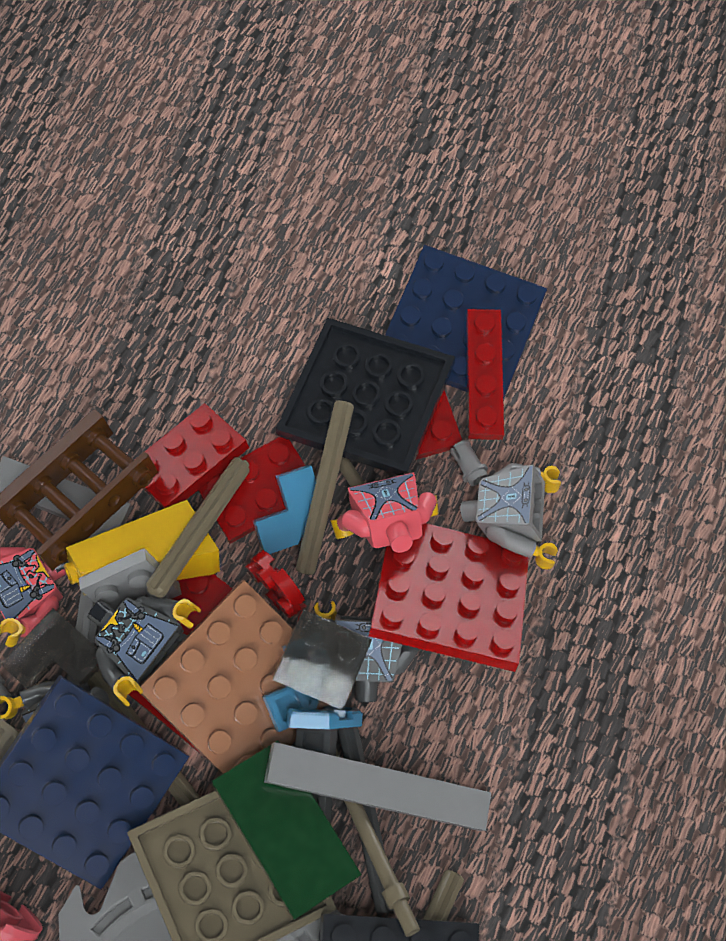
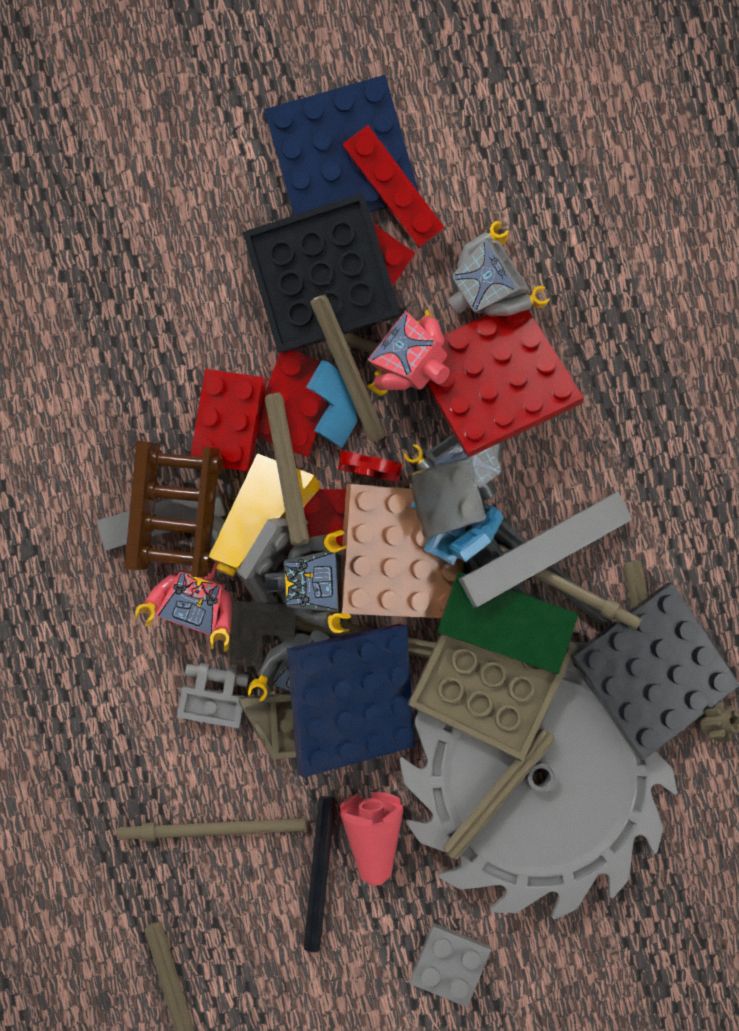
camera: 35 degrees left, 20 degrees up
(469, 463) = (431, 266): light grey pin -> none

